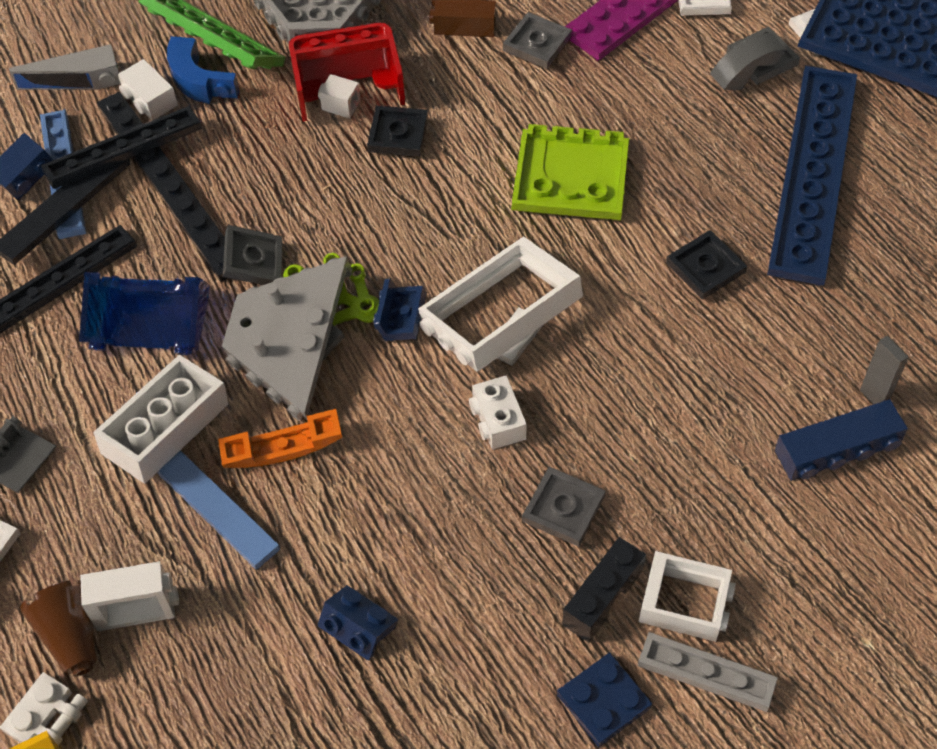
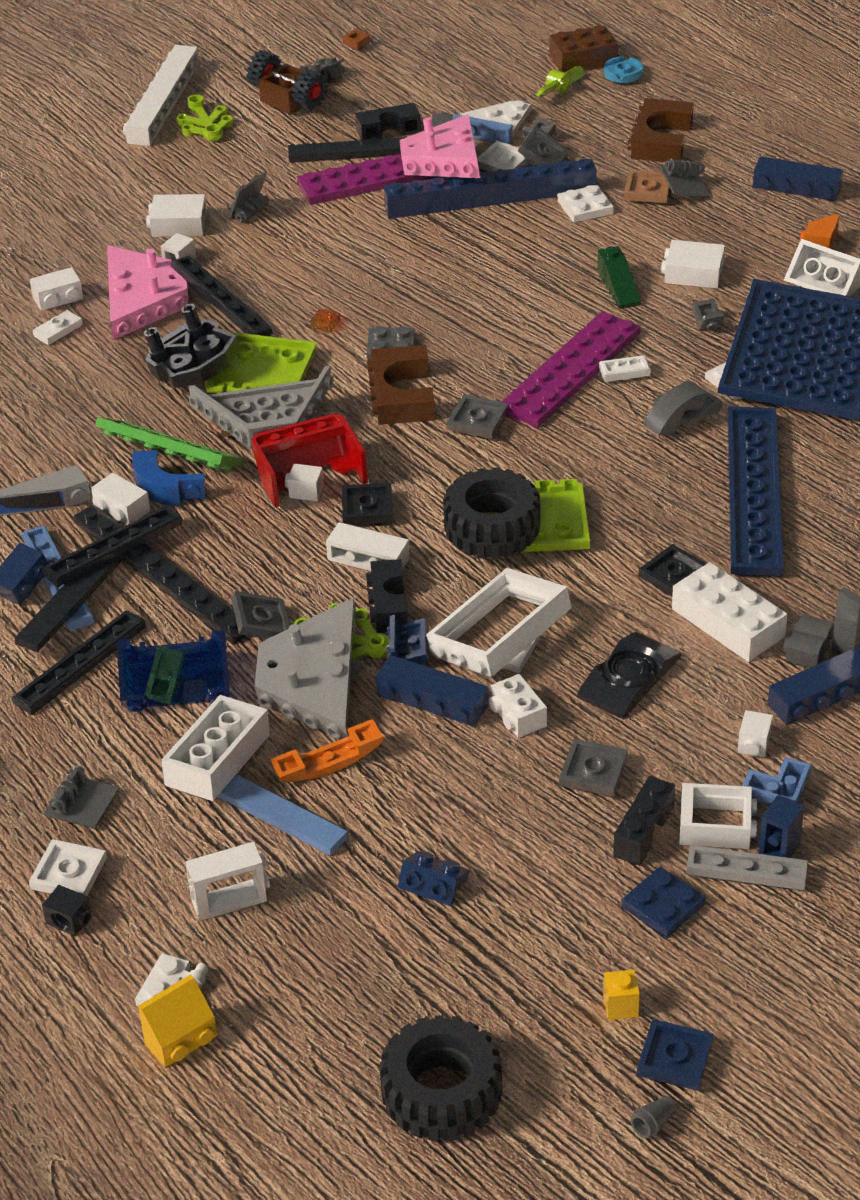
camera: 10 degrees left, 15 degrees down
(63, 626) = (172, 911): reddish brown cone -> none
(133, 316) = (165, 675): none -> clear green slope
(385, 188) = (359, 546): none -> white brick
(392, 230) = (386, 593): none -> black arch
(411, 378) = (432, 690): none -> dark blue brick
(520, 141) = (498, 533): none -> black tyre
(628, 387) = (627, 674): none -> black slope
(751, 492) = (755, 733): none -> white brick
(754, 634) = (781, 827): none -> dark blue brick
(755, 327) = (729, 611): none -> white brick
(766, 574) = (788, 783): none -> medium blue brick
(836, 378) = (808, 641): none -> dark grey brick

